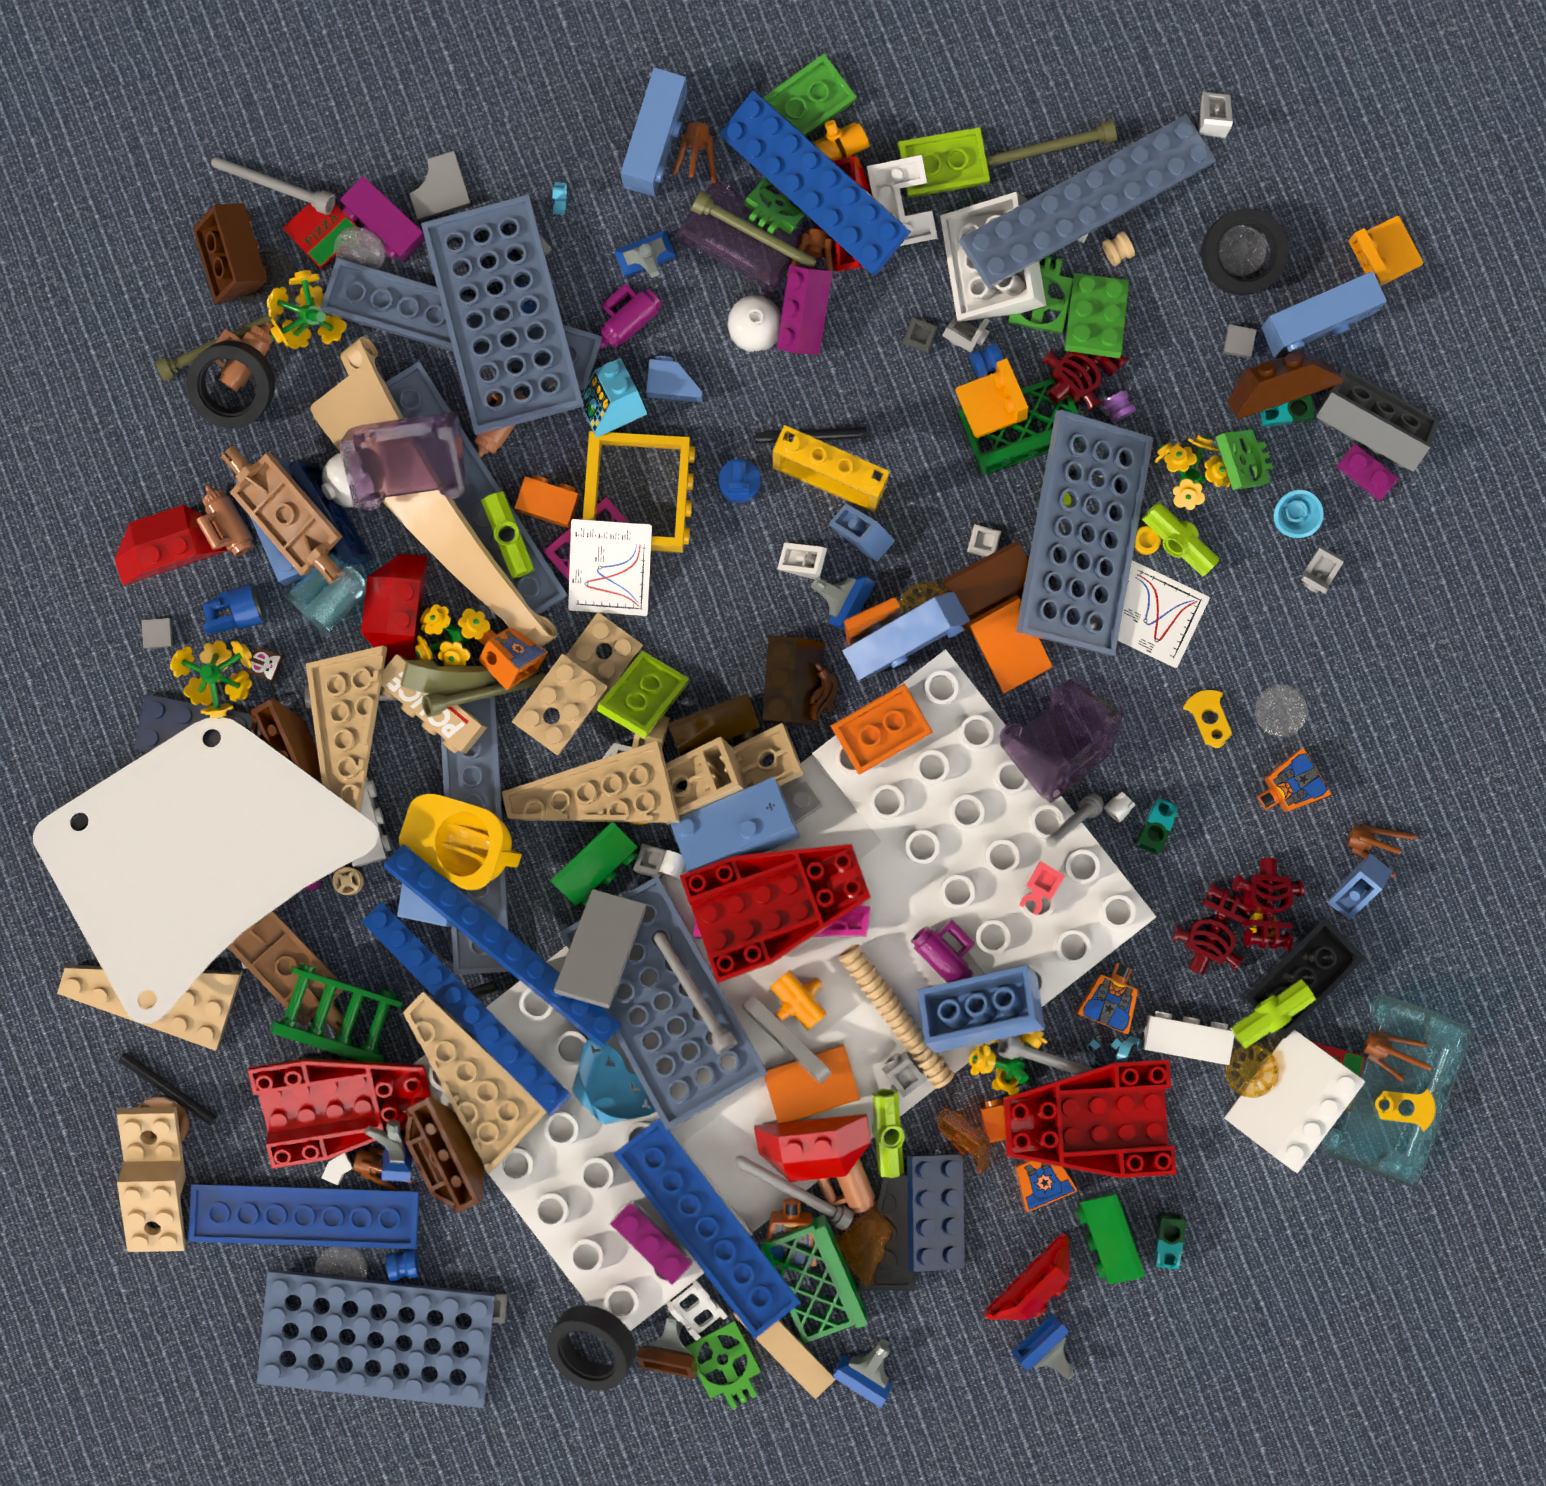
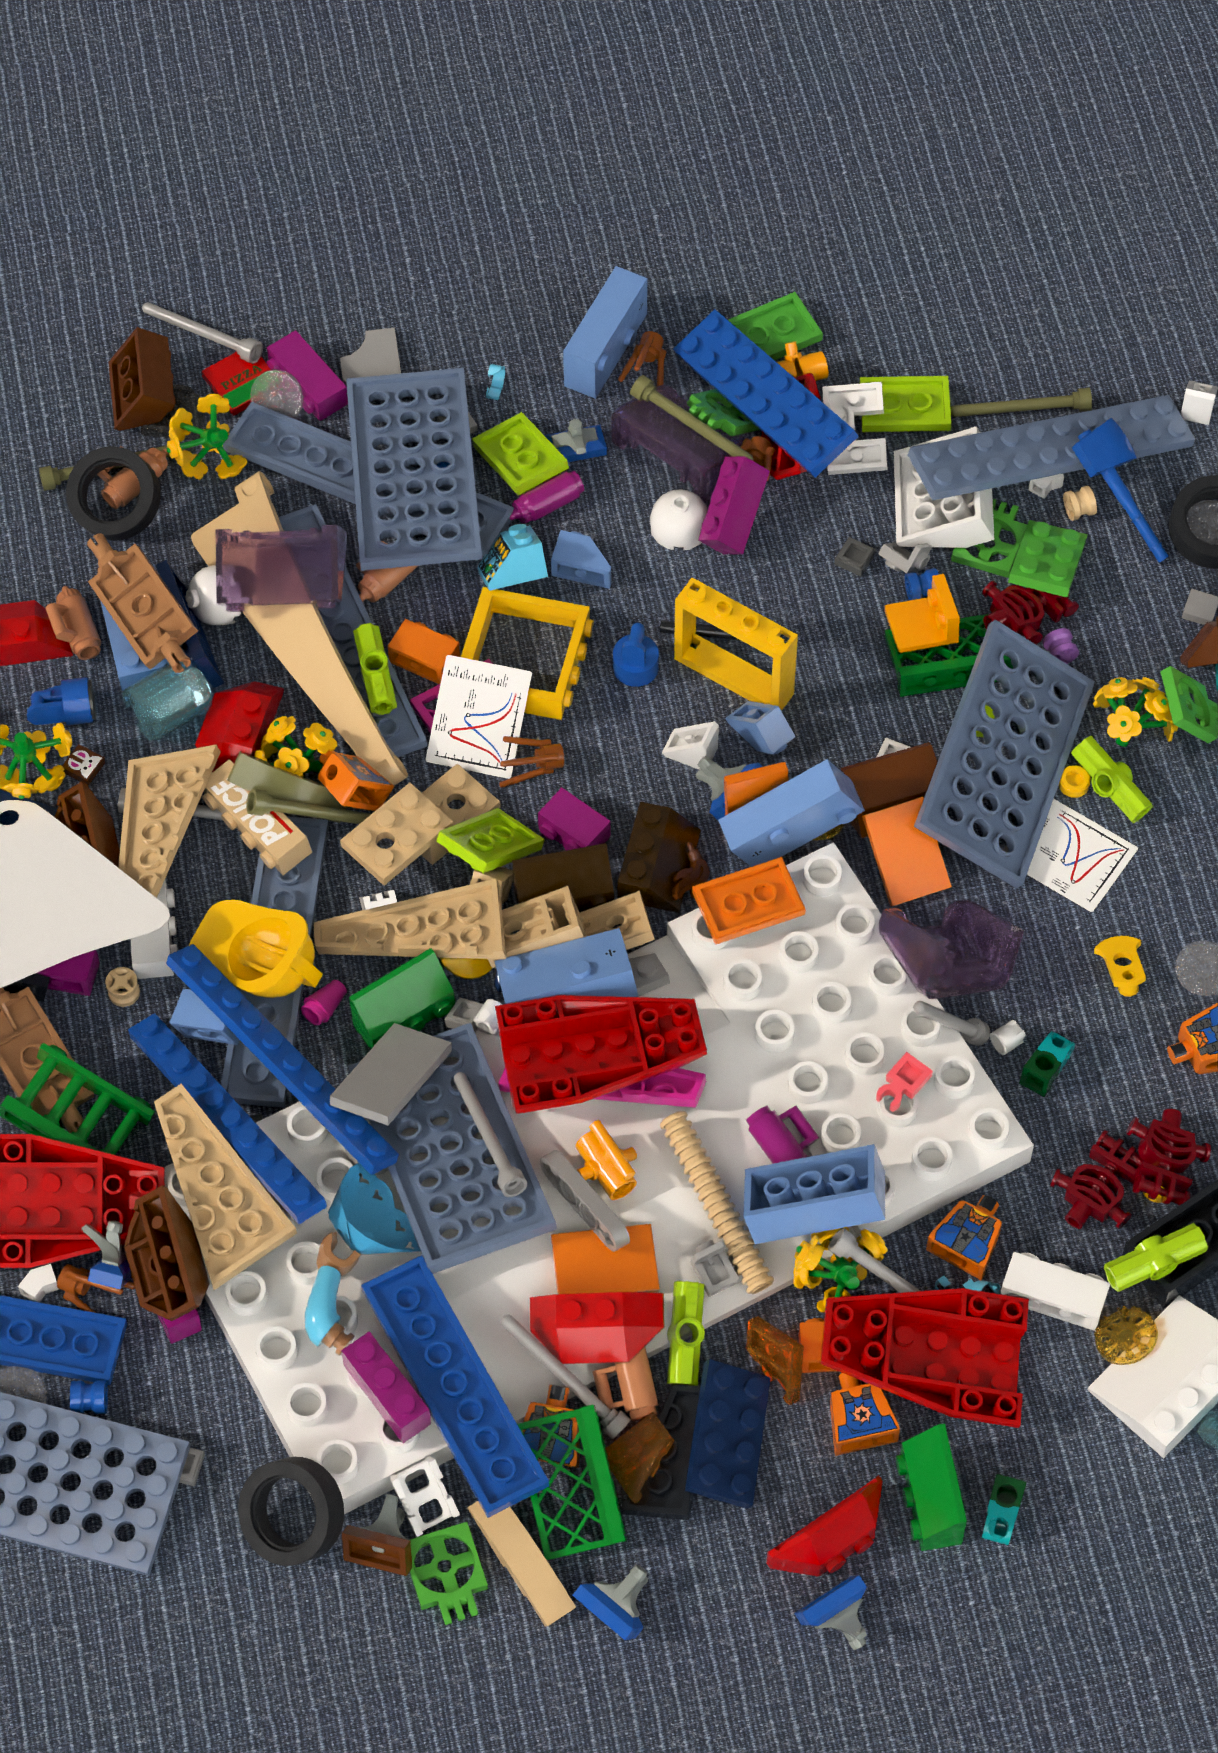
camera: 10 degrees right, 25 degrees down
(527, 868) = (323, 1003): none -> dark pink cone
(551, 761) = (378, 900): none -> white tile
(585, 1188) = (321, 1313): none -> piece
(597, 277) = (520, 453): none -> lime plate
(677, 595) = (547, 757): none -> dark orange plant
(712, 659) = (572, 822): none -> magenta piece
(1134, 204) = (1101, 453): none -> blue piece

